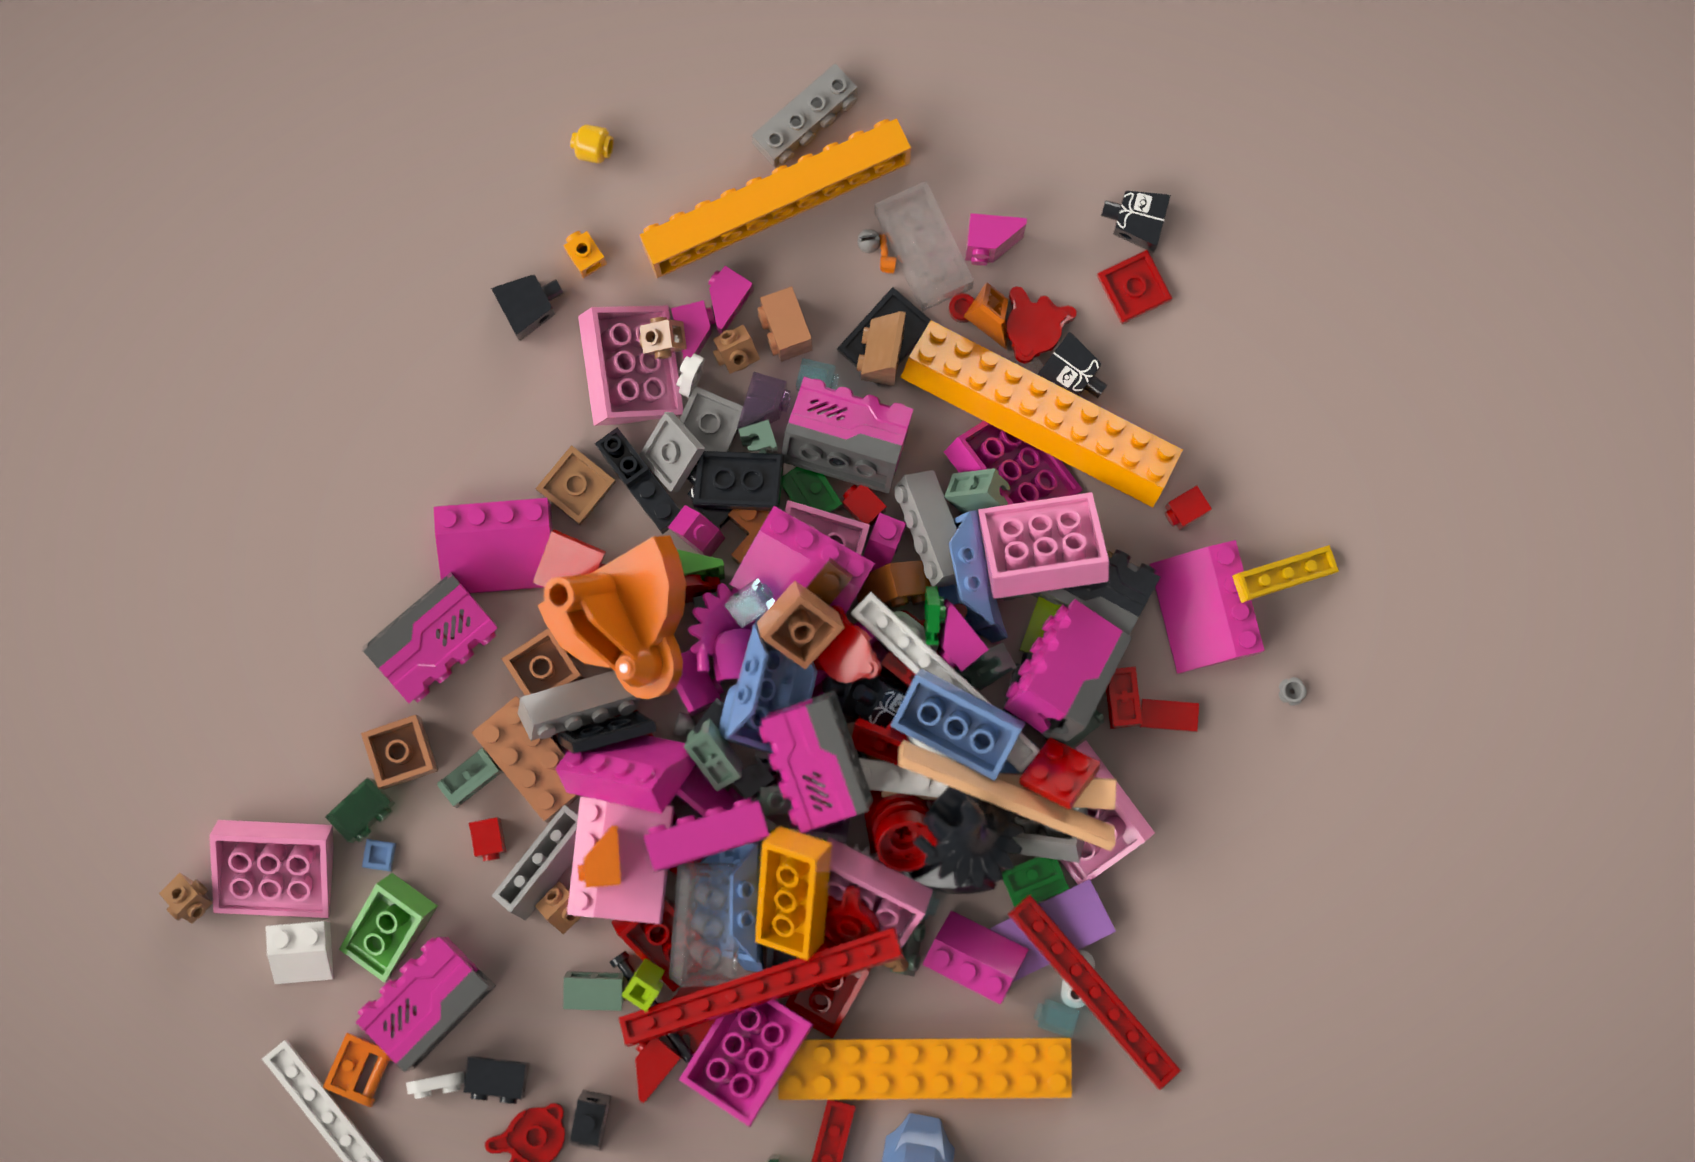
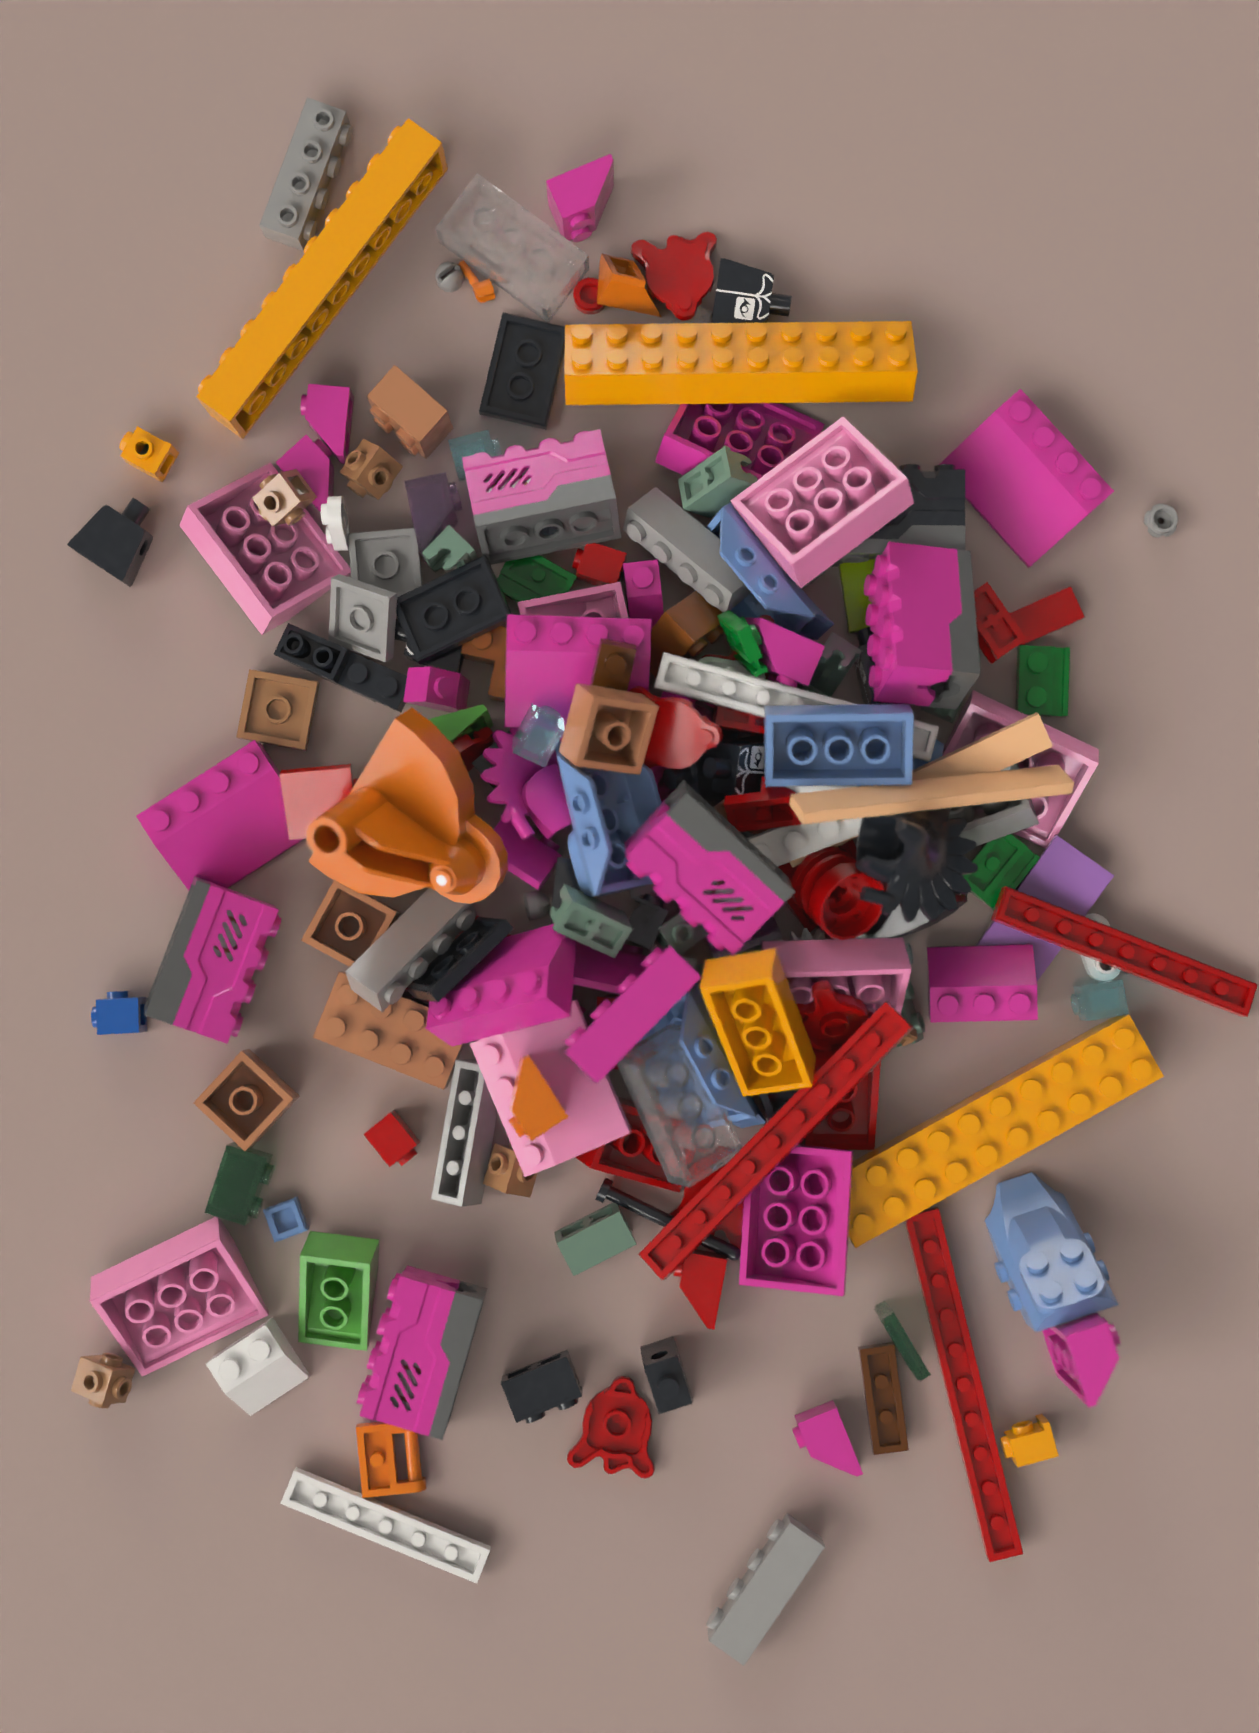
camera: 35 degrees left, 5 degrees up
(343, 642) = (119, 1014): none -> blue brick
(423, 1087) = (493, 1418): white plate -> none
(469, 778) = (336, 1086): sand green hinge -> none
(592, 143) = (90, 328): yellow head -> none
(644, 985) = (647, 1205): lime brick -> none
(882, 348) = (530, 381): medium nougat slope -> none
(1059, 773) = (974, 739): red plate -> none
(1134, 286) = (762, 175): red tile -> none
(1138, 217) = (727, 95): black torso -> none
(1142, 761) = (1042, 680): none -> green plate
(1187, 508) = (947, 383): red brick -> none
(1285, 573) = (1090, 397): yellow tile -> none

